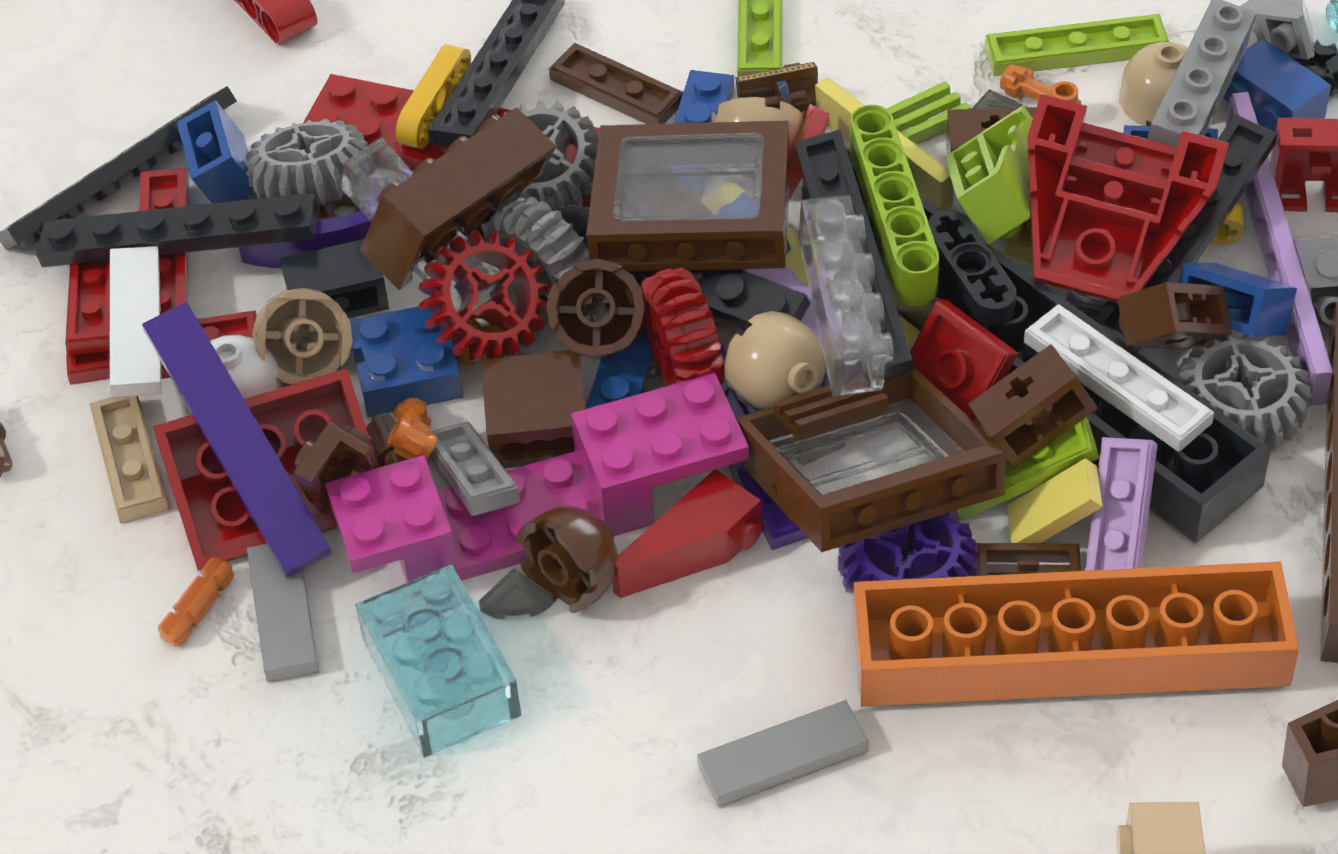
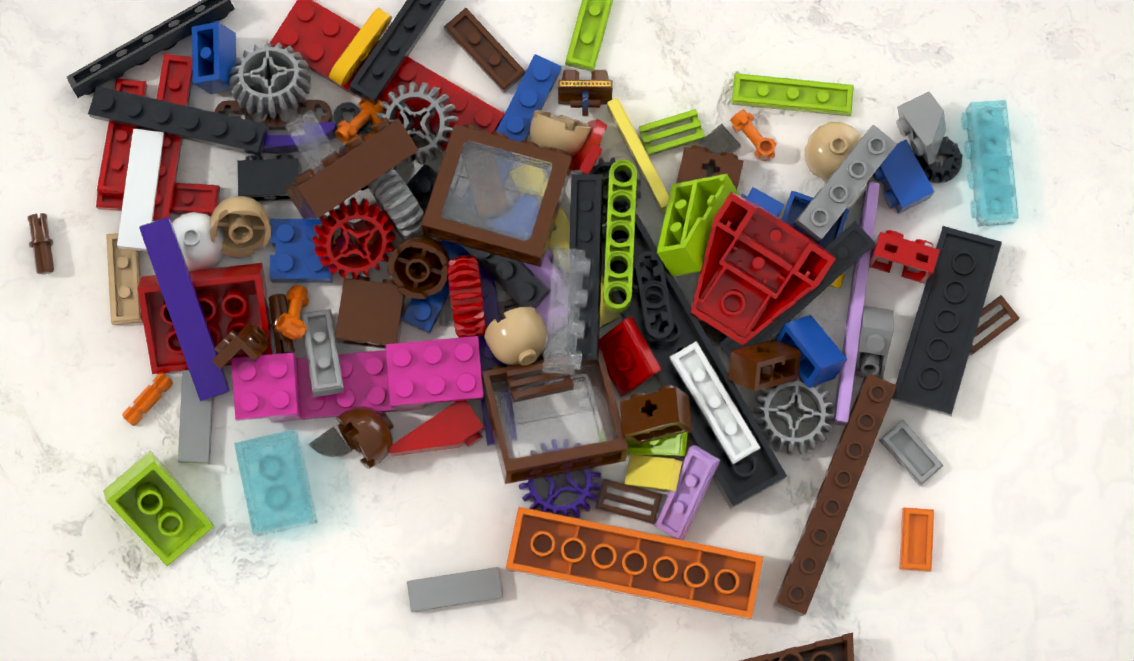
camera: 10 degrees right, 30 degrees up
(244, 741) = (157, 508): none -> lime slope

